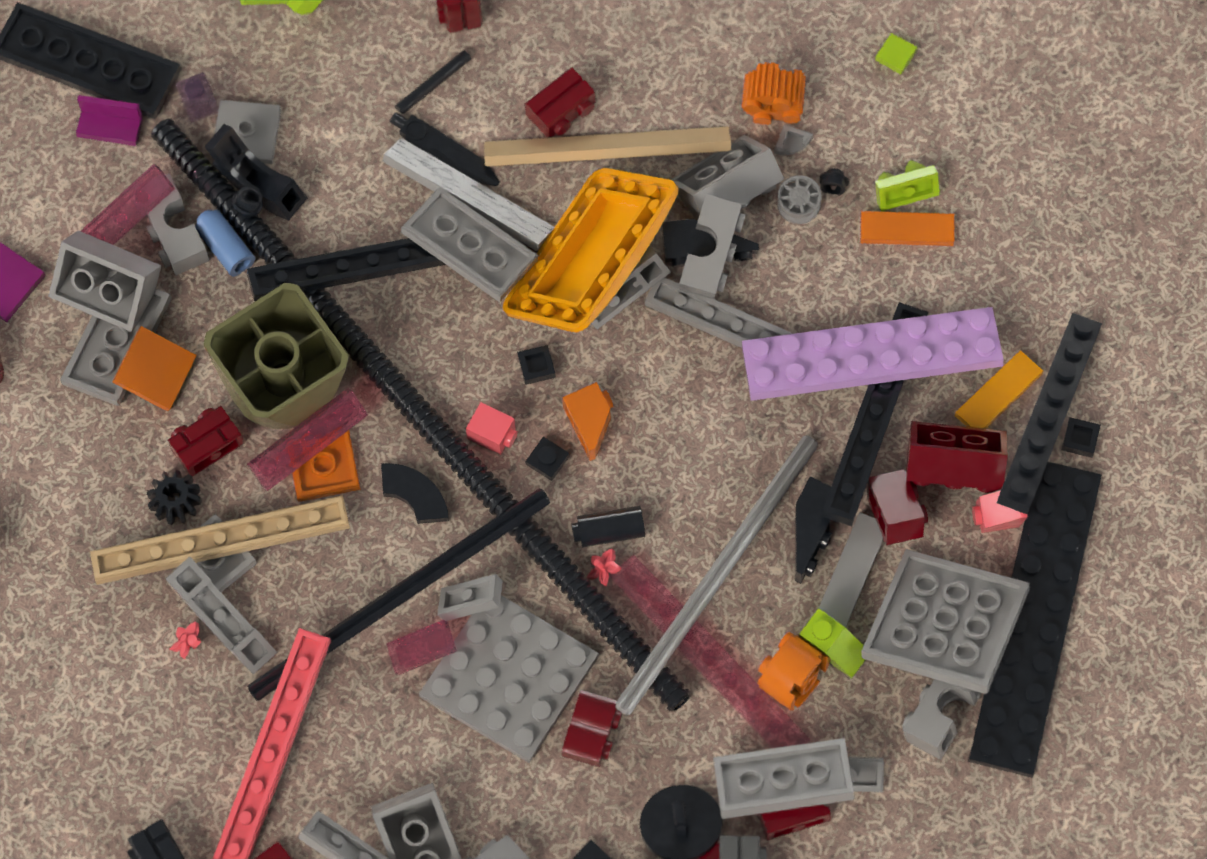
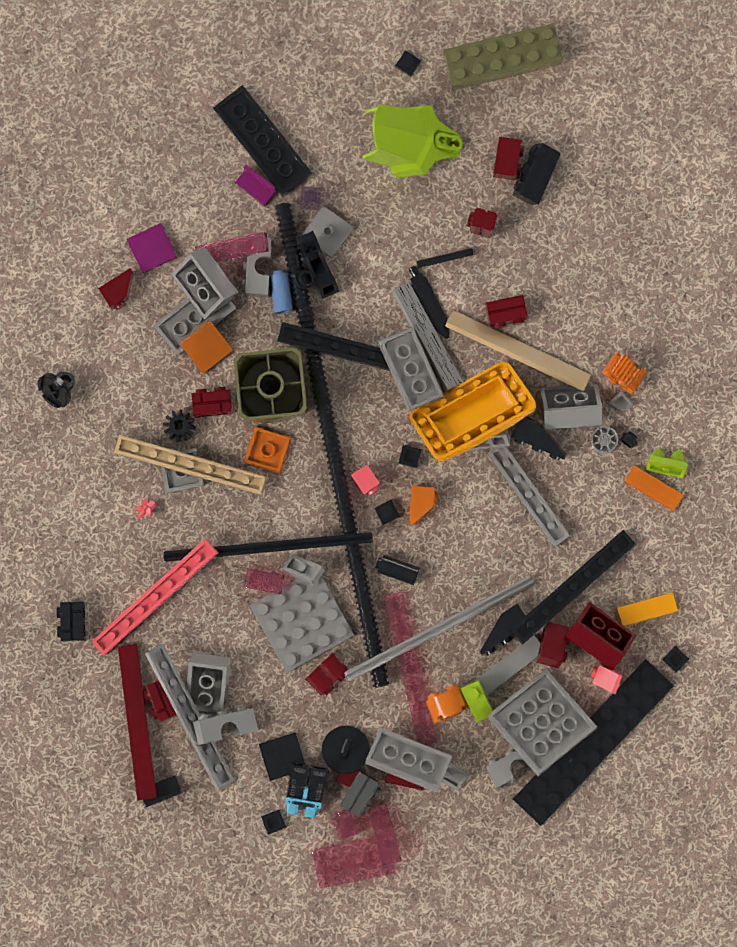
camera: 30 degrees right, 15 degrees up
(220, 615) = (169, 507): light grey slope -> none
(307, 439) = (265, 434): clear pink plate -> none
(416, 491) = (308, 492): black tile -> none
(604, 566) = (383, 589): coral plant -> none
(705, 273) = (526, 459): light grey arch -> none
(872, 353) = (590, 553): lavender plate -> none
(896, 53) = (708, 382): lime tile -> none
(1049, 414) = (663, 641): black plate -> none

